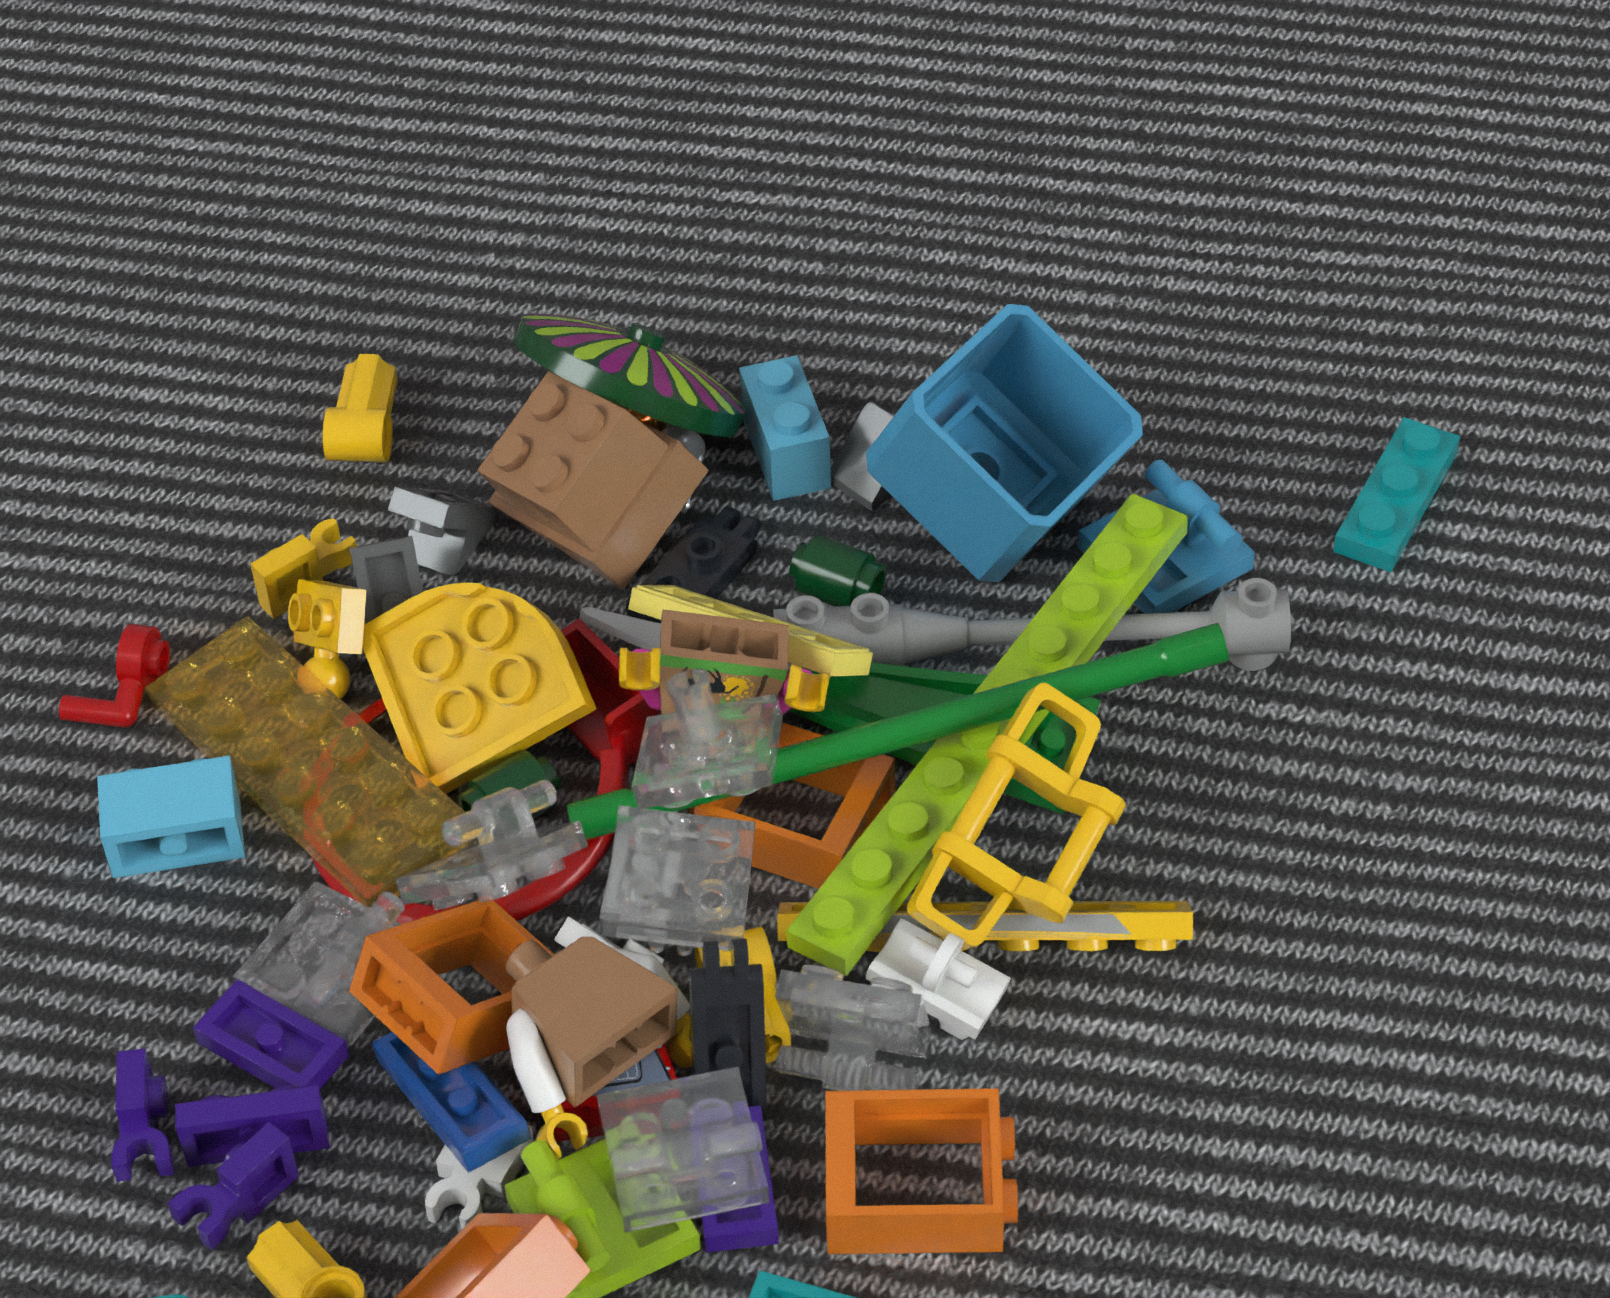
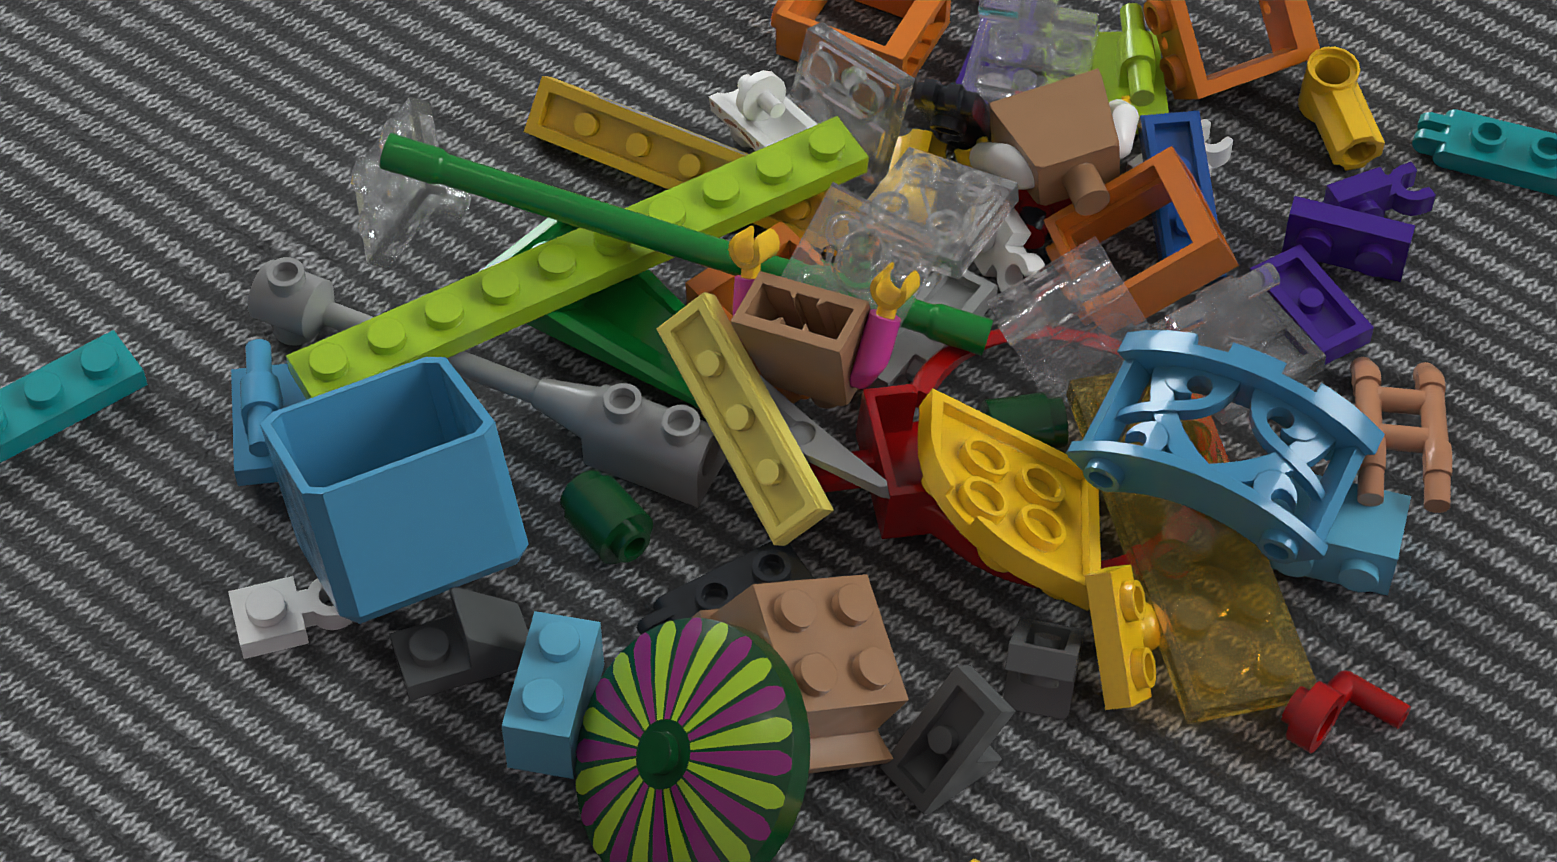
camera: 155 degrees left, 5 degrees up
(139, 1103) = (1433, 290): dark purple plate -> none
(166, 933) = (1429, 439): none -> nougat piece
(279, 569) = (1123, 749): yellow plate -> none
(326, 789) = (1173, 469): none -> dark azure fence
(1060, 787) = (593, 157): yellow bar -> none
(1238, 752) = (393, 205): none -> clear plate

